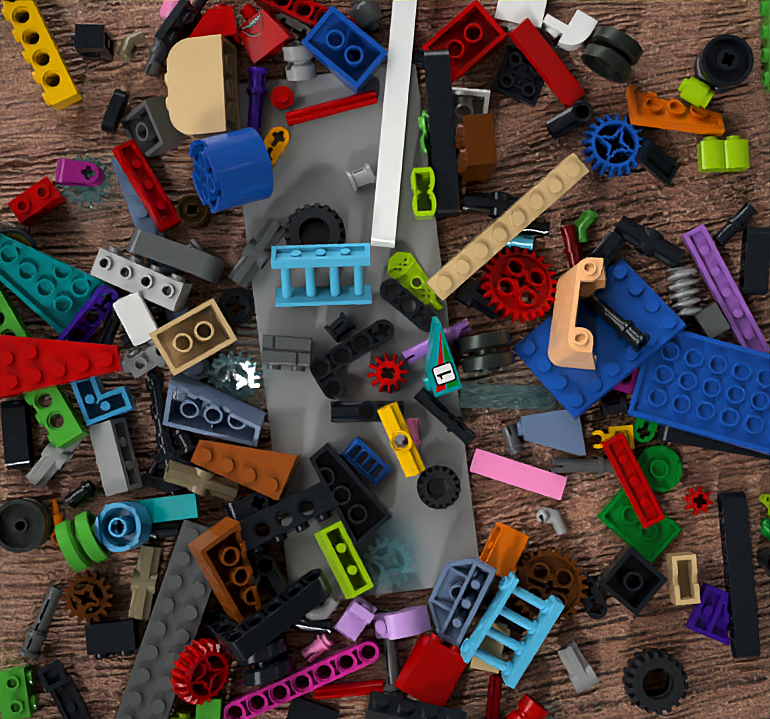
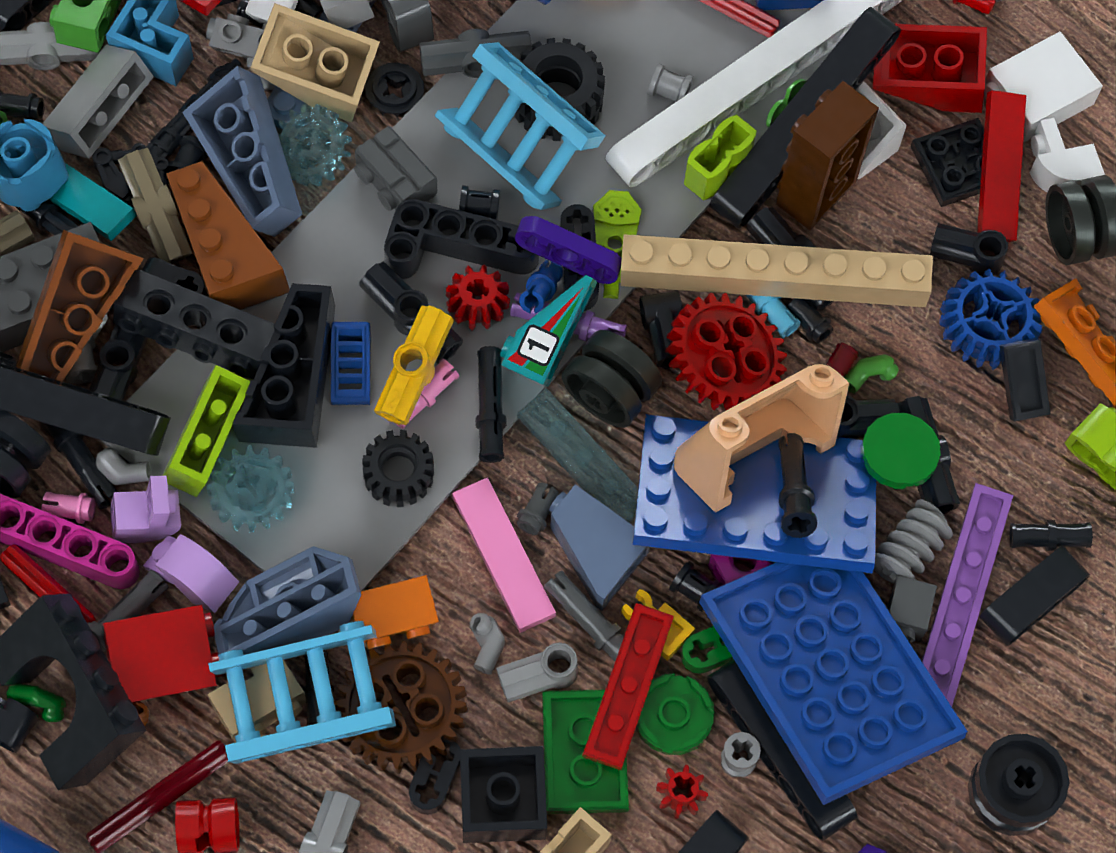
camera: 45 degrees right, 20 degrees down
(408, 314) = (568, 249): none -> dark purple beam
(412, 341) = (541, 286): none -> blue pin
(587, 515) = (534, 675): none -> light grey piece
(641, 256) = (900, 450): none -> green tile
(708, 466) = (742, 766): none -> light grey bush

